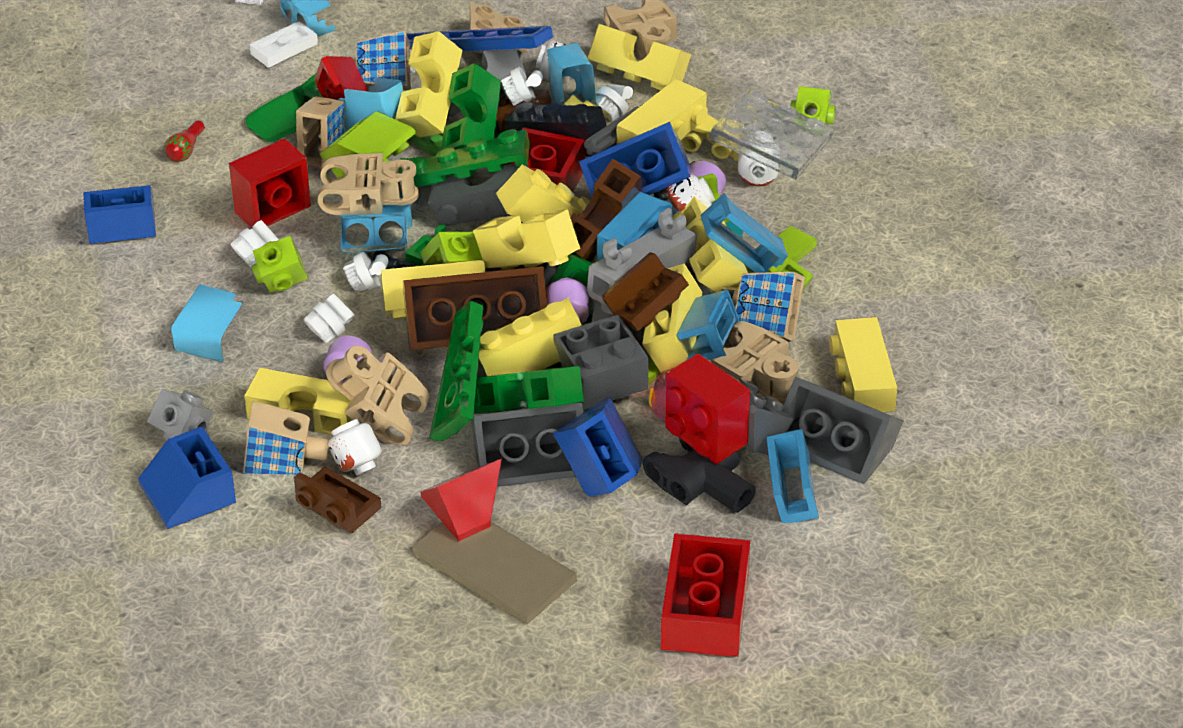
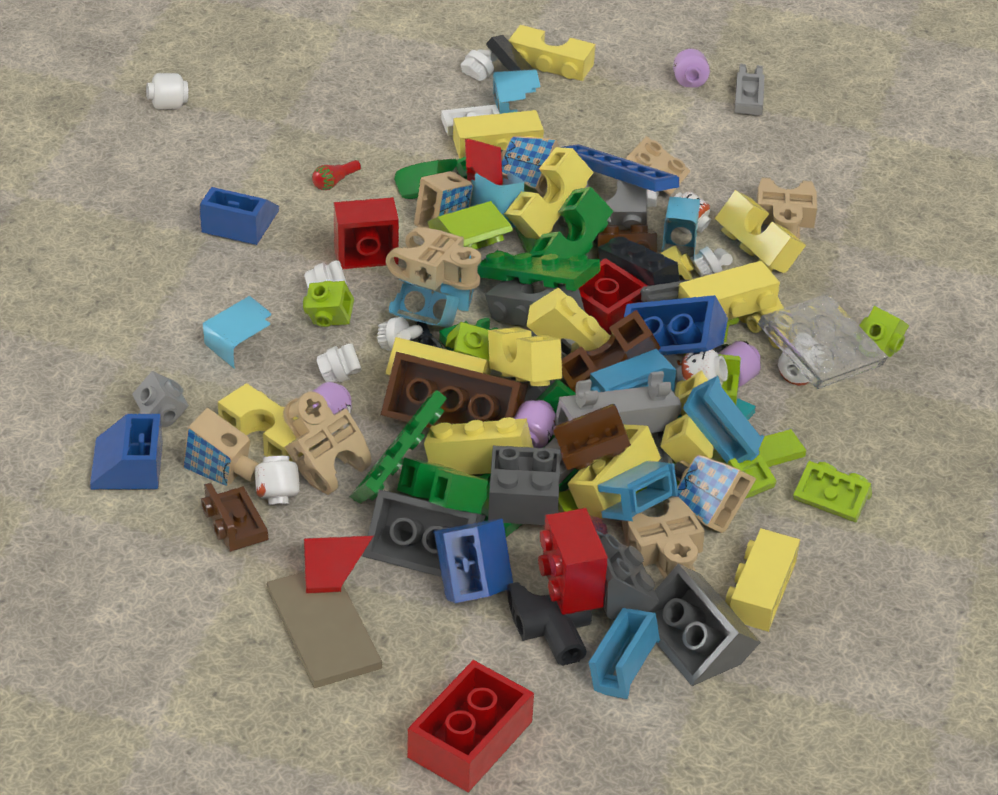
camera: 25 degrees right, 0 degrees up
(301, 55) = (495, 129): none -> light yellow brick
(519, 86) = (630, 221): white piece -> none
(867, 265) = (833, 490): none -> lime bracket

